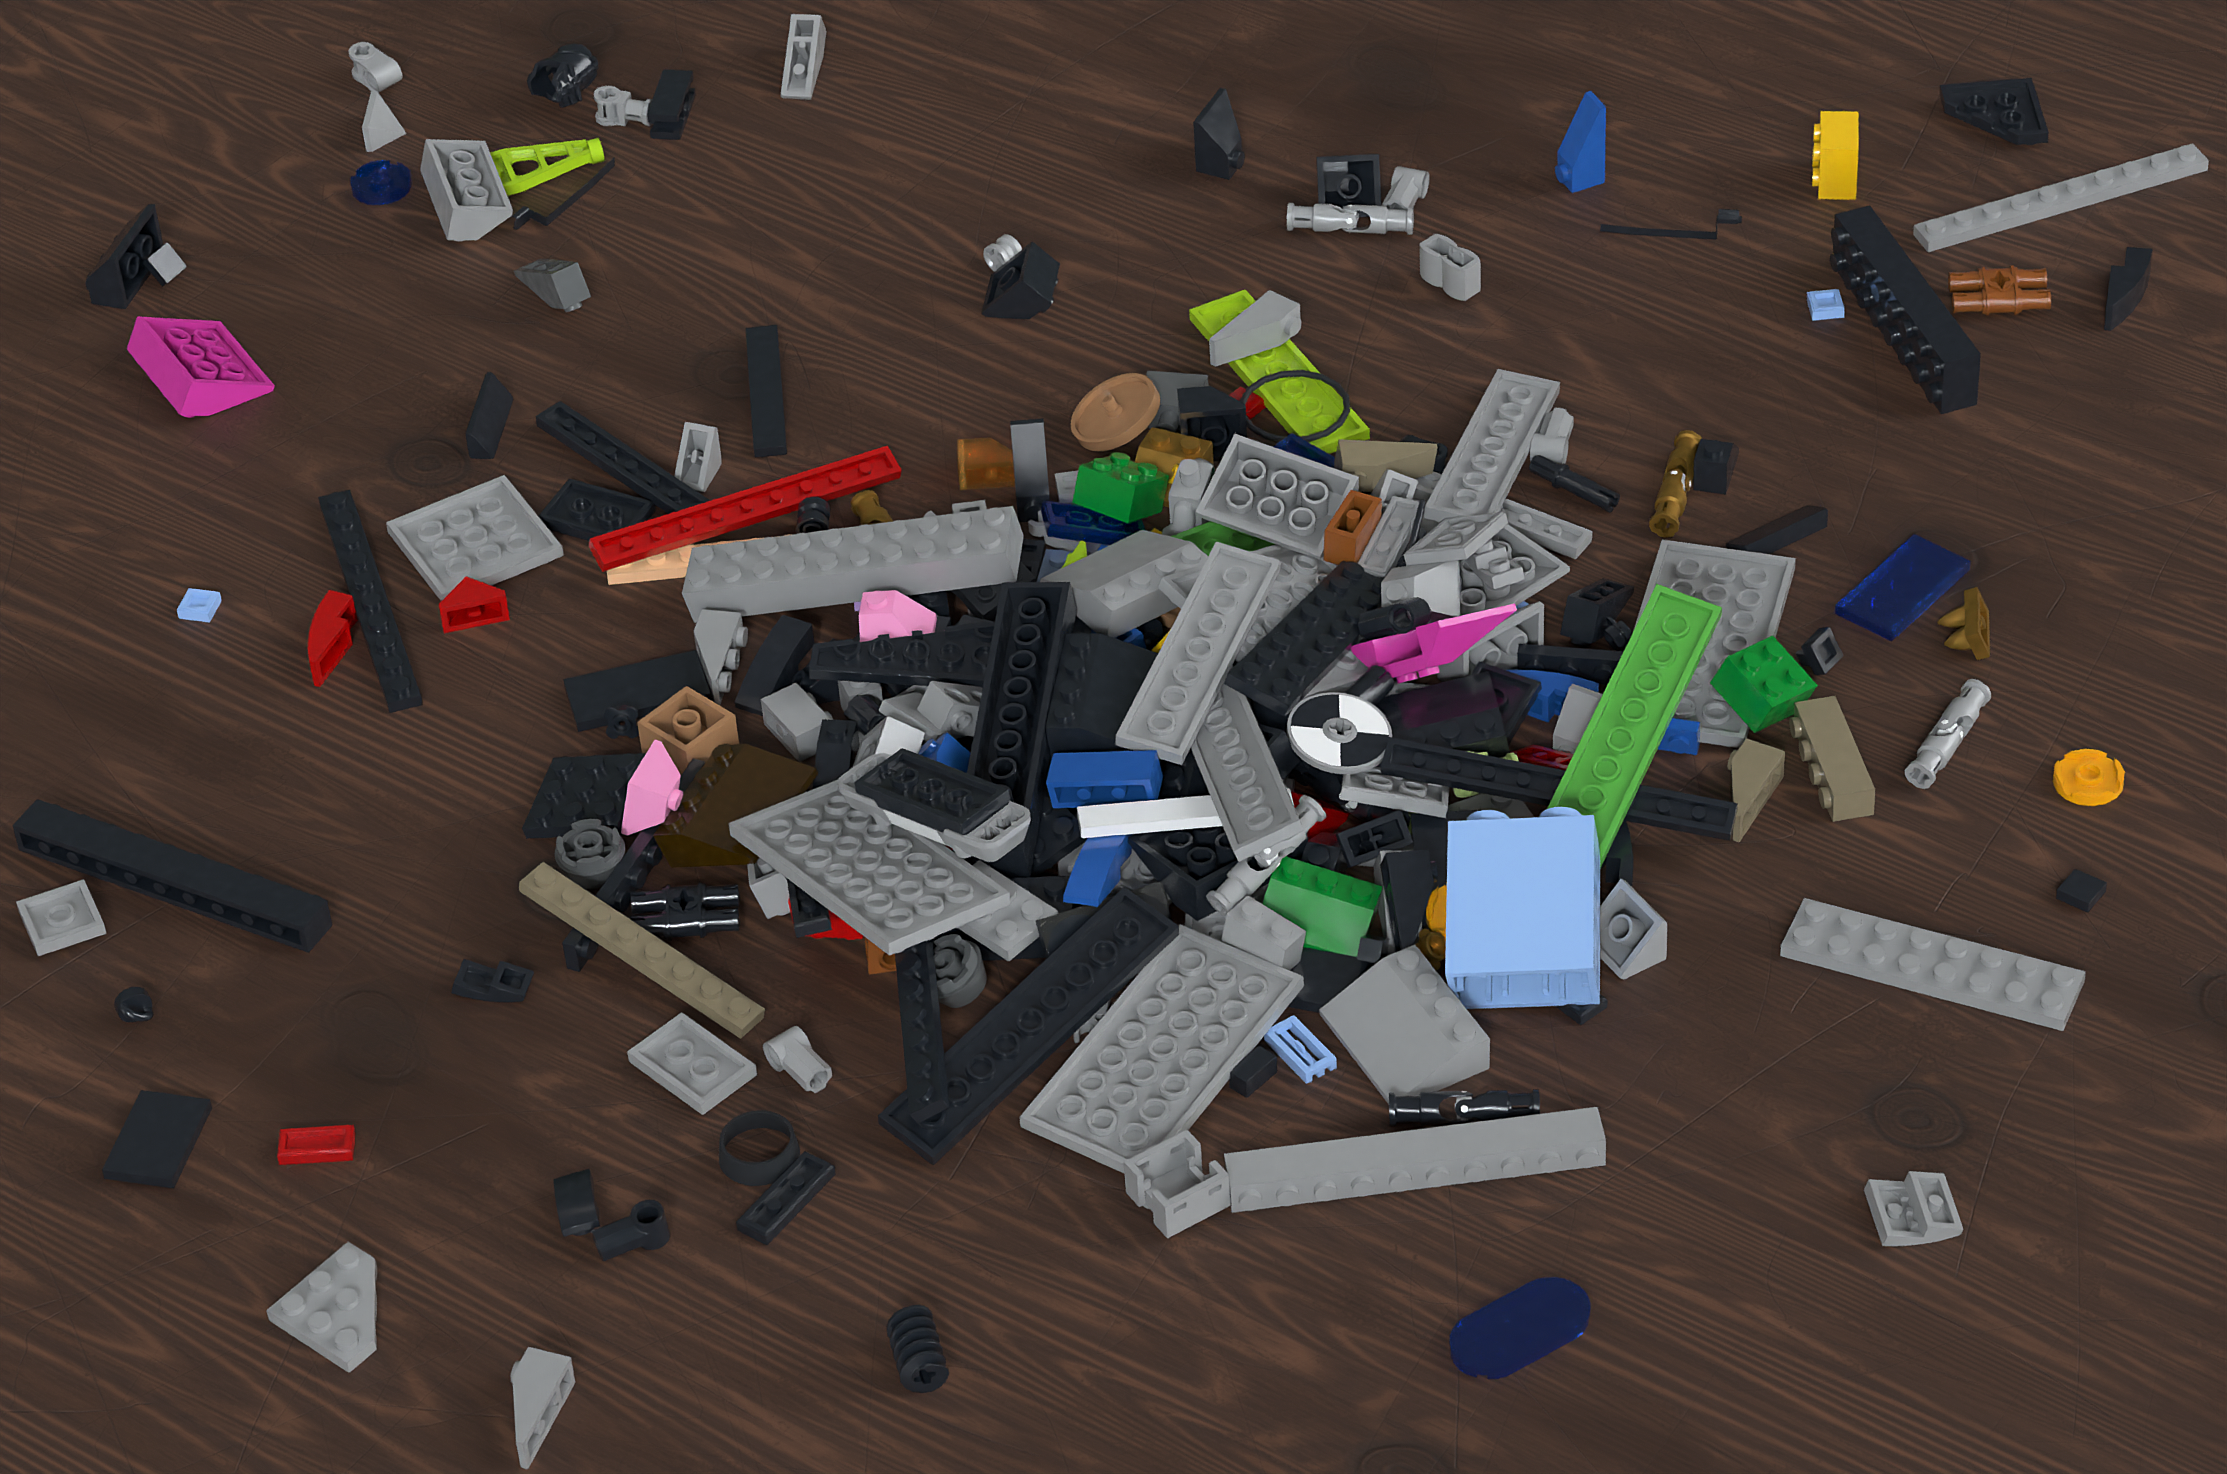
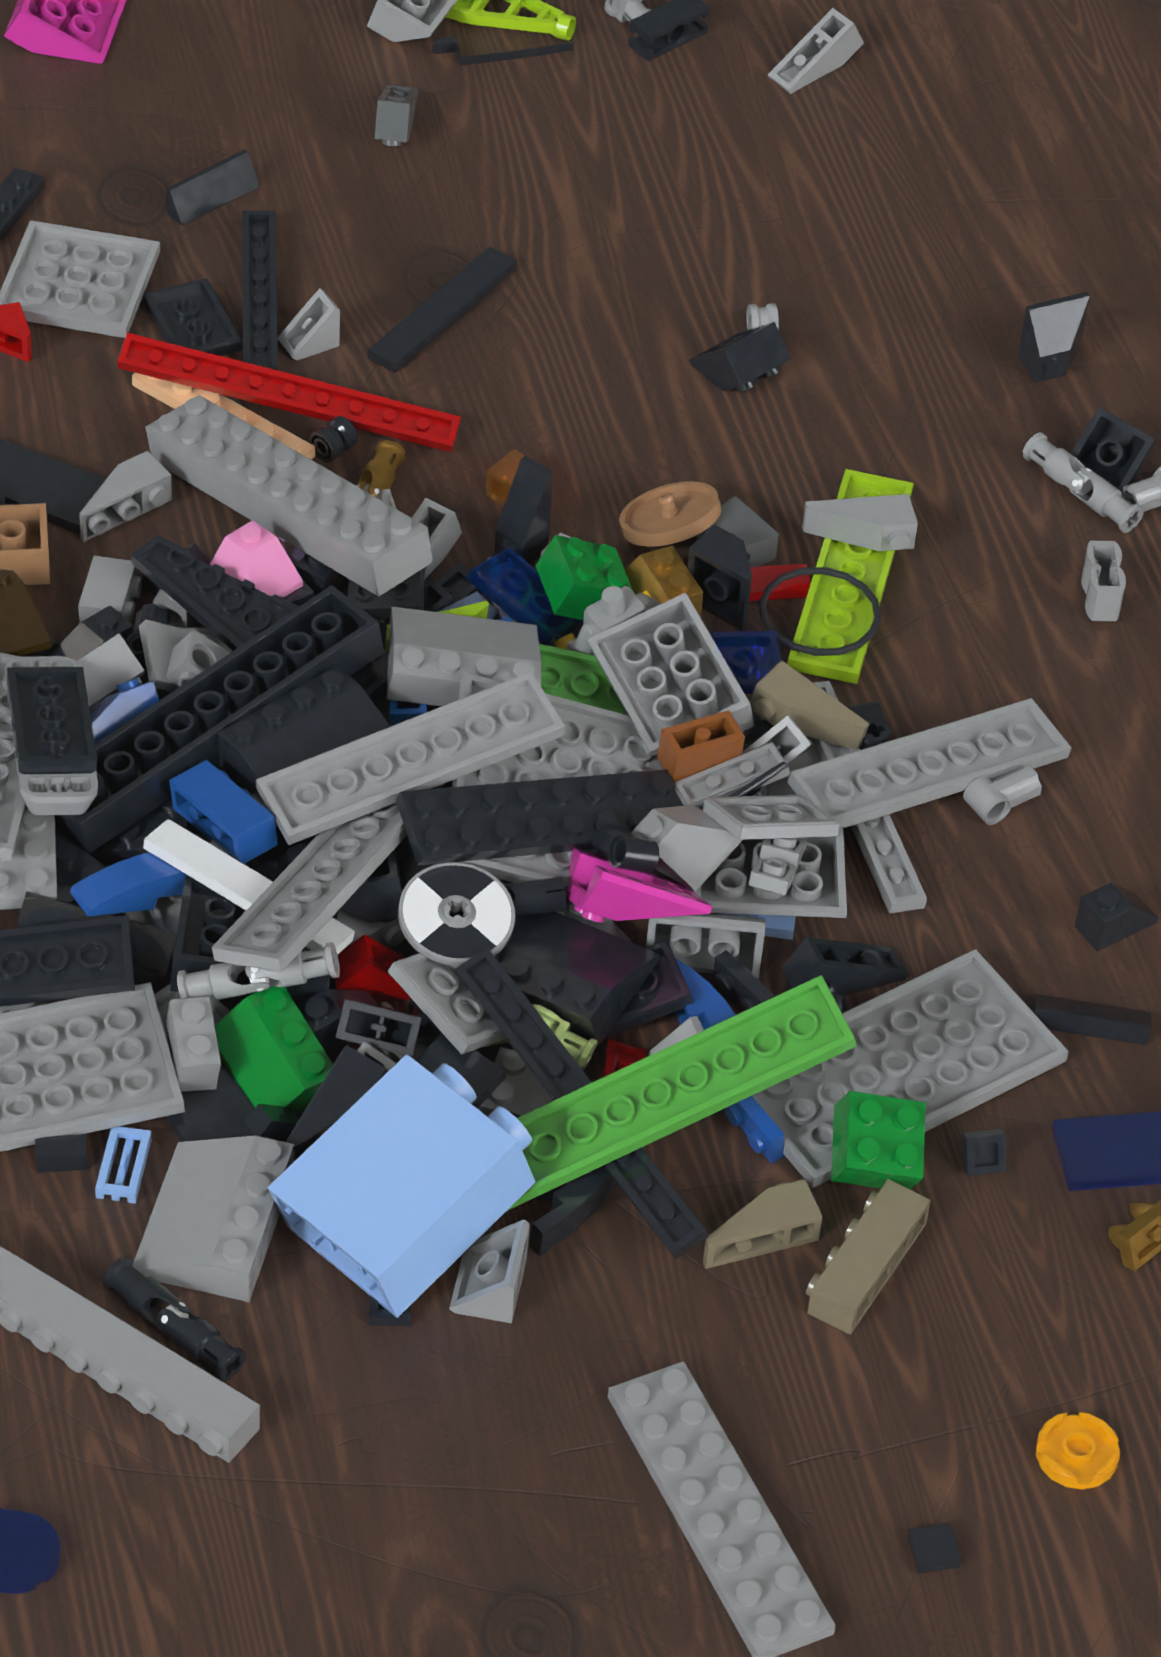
camera: 35 degrees right, 5 degrees up
(775, 662) = (176, 522): black slope -> none
(1564, 478) = (968, 833): black axle -> none
(1675, 484) = (1049, 911): pearl gold piece -> none
(1948, 733) = (993, 1312): light grey piece -> none

